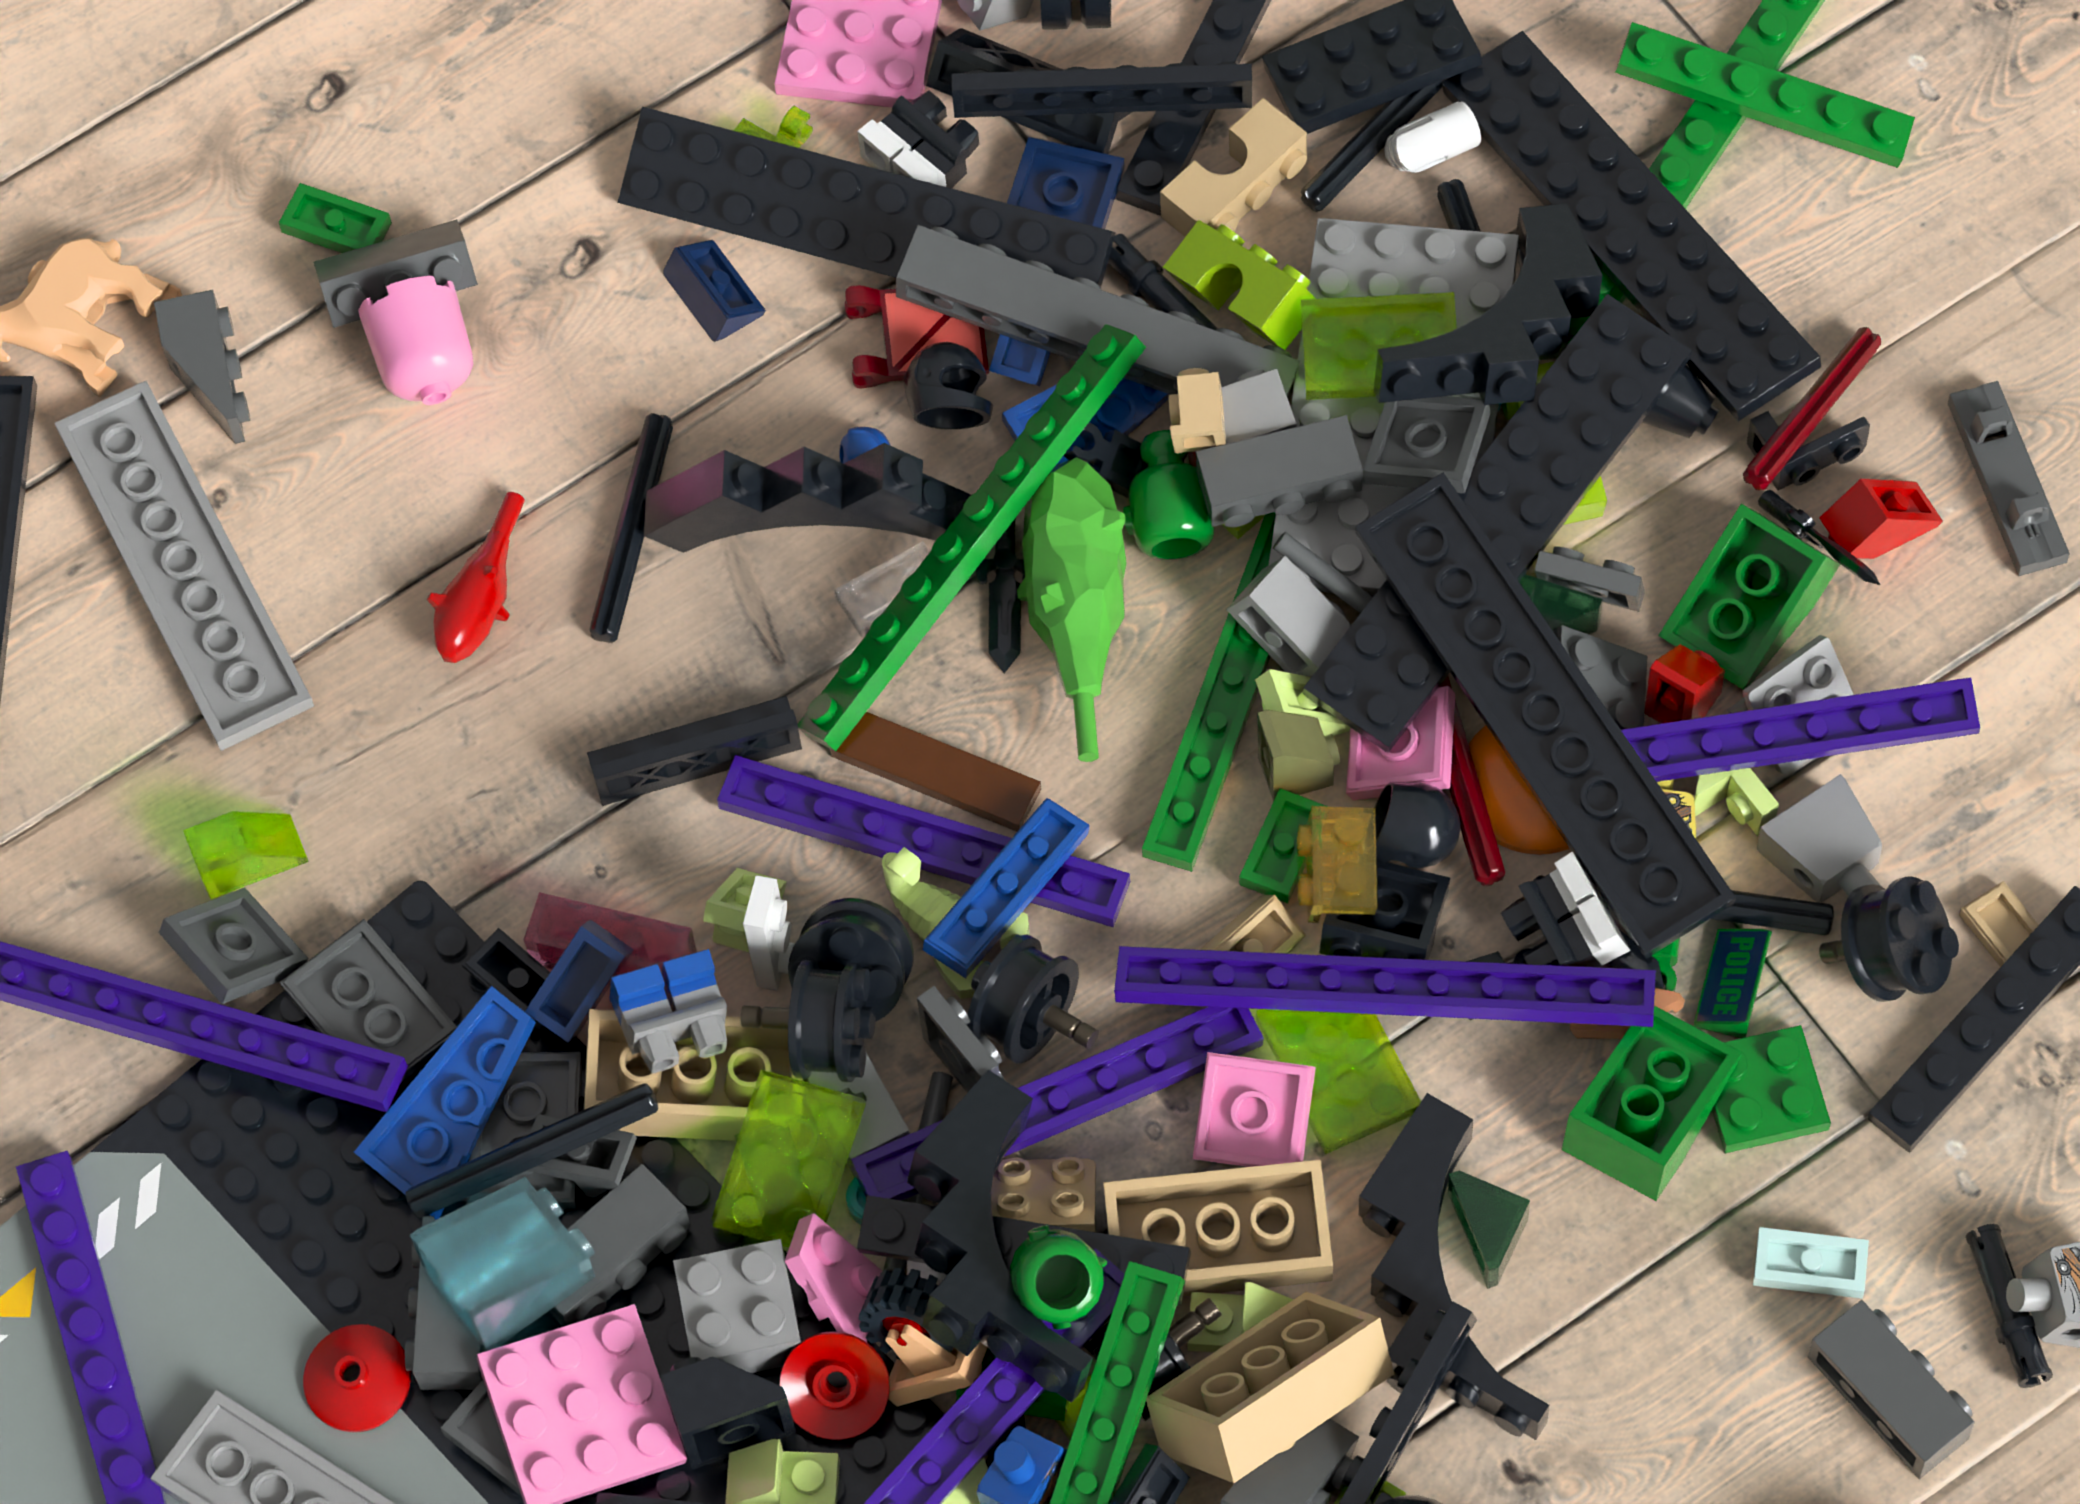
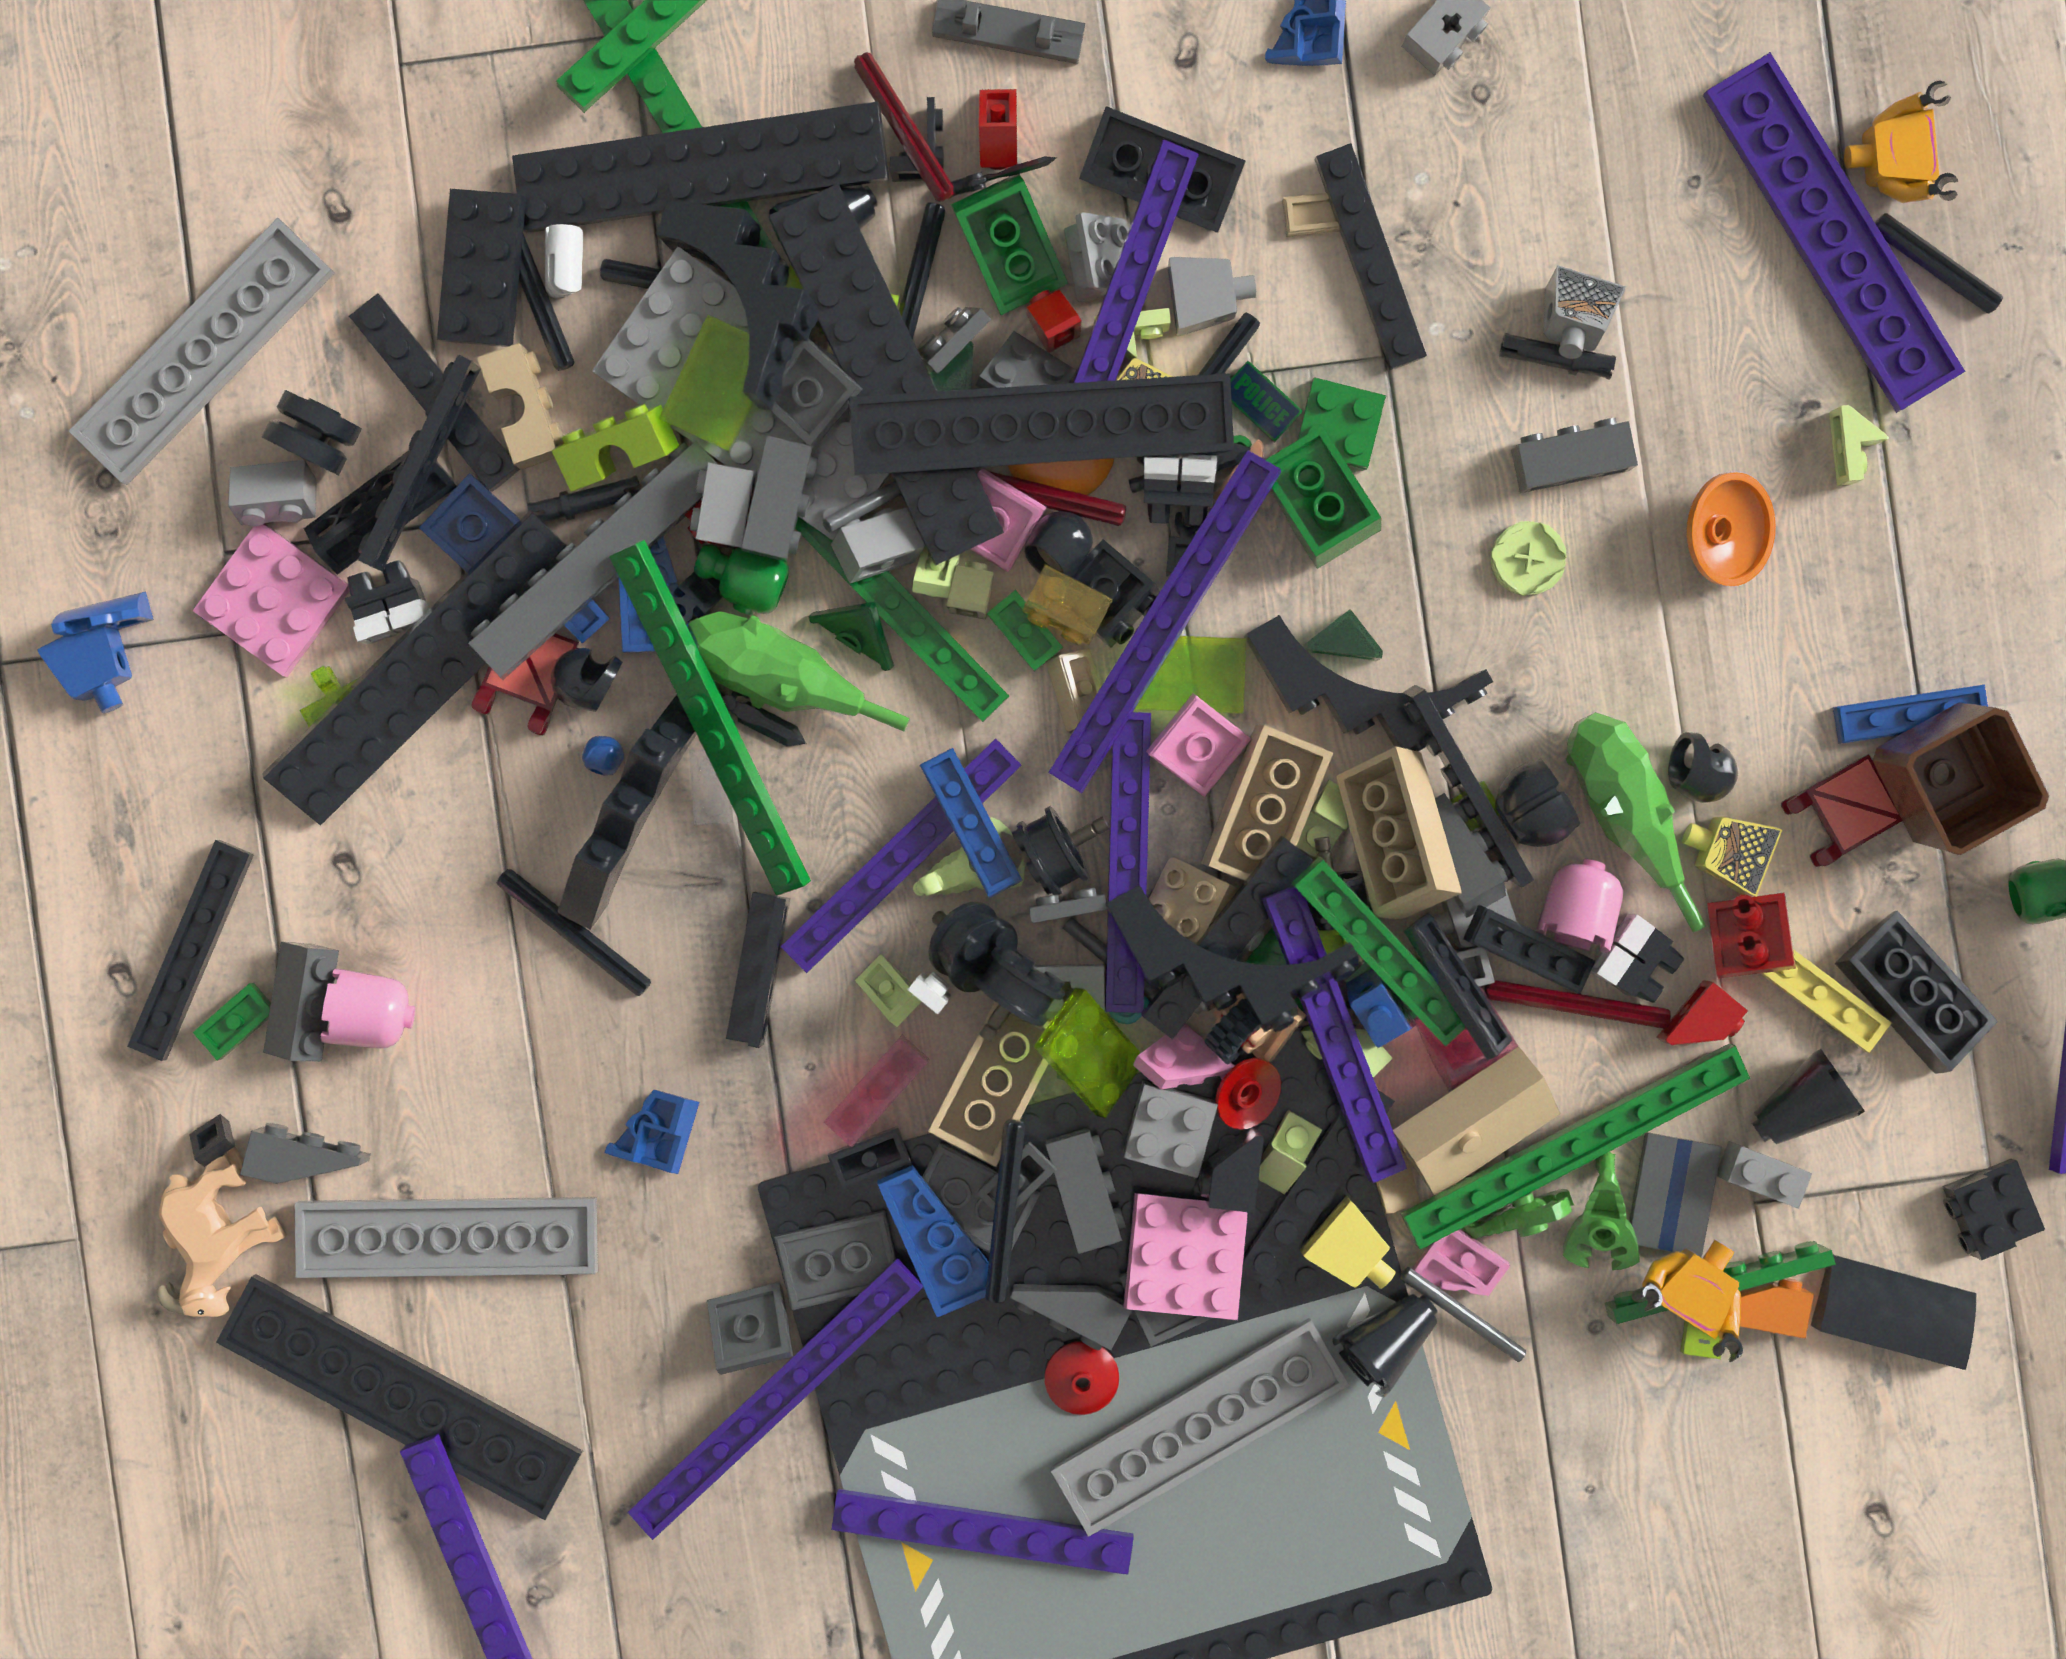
camera: 70 degrees left, 25 degrees up
(178, 263) = (212, 1140): none -> black plate
(243, 849) = (680, 1289): clear neon green slope -> none
(397, 139) = (190, 950): none -> black plate
(431, 735) = (658, 1132): none -> blue slope
(478, 591) = (571, 1055): red piece -> none
(504, 1260) = (1078, 1267): clear light blue slope -> none
(579, 980) = (902, 1127): dark blue piece -> none
(670, 1008) = (962, 1064): light grey hips -> none
(712, 289) = (419, 793): dark blue slope -> none
(940, 771) = (856, 818): reddish brown tile -> none
(1057, 1276) = (1283, 936): green piece -> none
(1176, 661) = (858, 629): none -> dark green tile
(1197, 411) = (714, 532): tan brick -> none
(1651, 520) = (921, 265): none -> black axle
(1728, 1406) = (1528, 558): none -> yellowish green tile
(1811, 1262) = (1469, 459): light aqua plate -> none
(1895, 939) = (1299, 289): black wheel -> none
(1957, 778) = (1126, 152): none -> black slope

